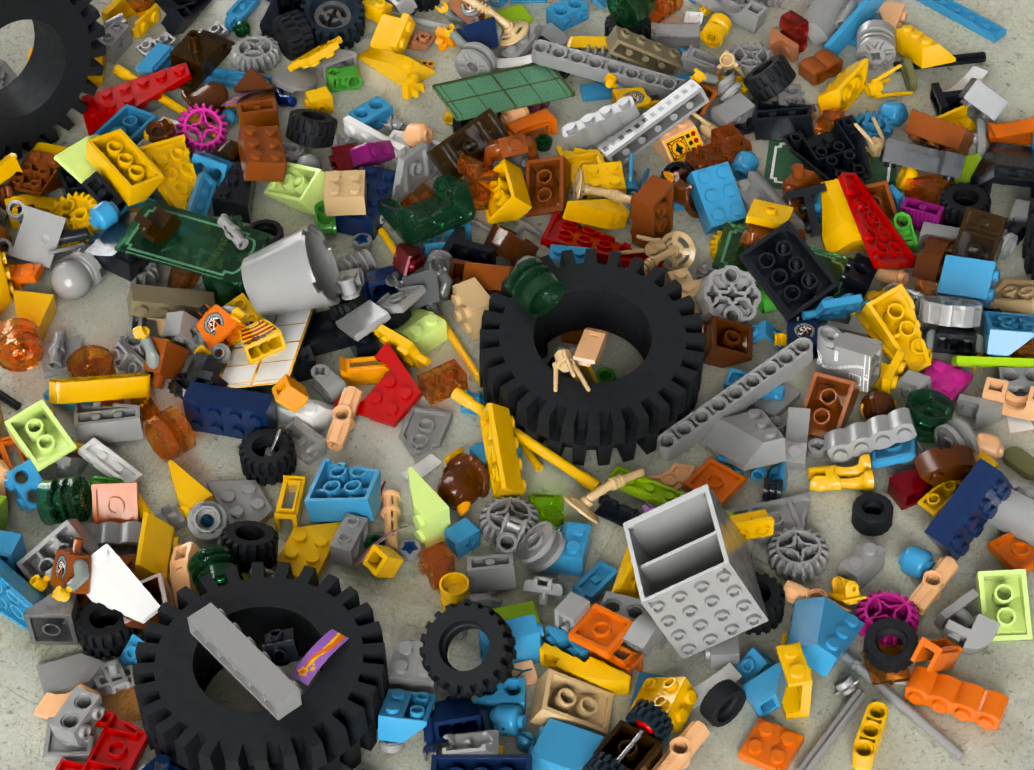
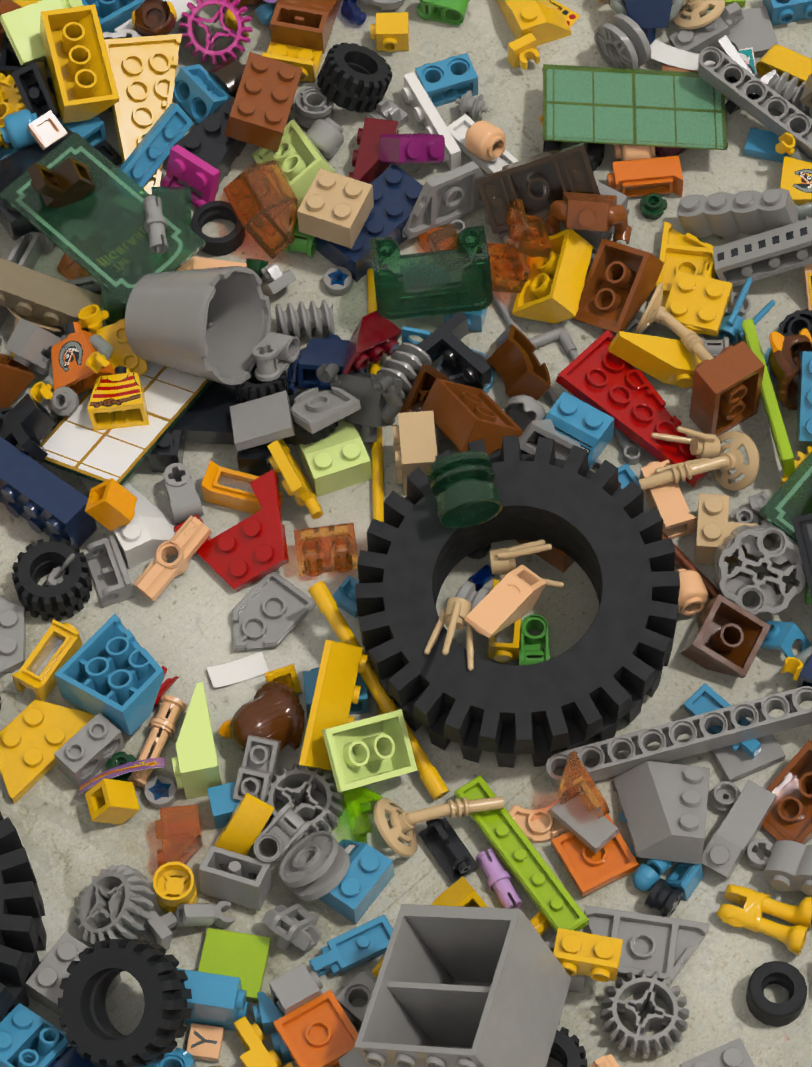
camera: 25 degrees right, 15 degrees up
(124, 208) = (47, 130): none -> light nougat tile
(213, 299) = (92, 317): none -> yellow plate
(233, 205) = (194, 172): none -> dark pink plate
(291, 208) = (264, 205): none -> clear orange wedge
(418, 609) = (114, 905): none -> light grey gear
(472, 505) = (257, 767): none -> light grey slope
(482, 538) = (244, 825): none -> yellow slope
(544, 467) = (369, 750): none -> yellowish green slope
(574, 331) = (504, 559): none -> tan plant
(690, 439) = (578, 781): none -> clear orange slope
(691, 221) = (770, 403): none -> lime tile
(699, 465) = (586, 826): none -> light grey tile
(754, 484) = (645, 878): none -> dark azure hinge

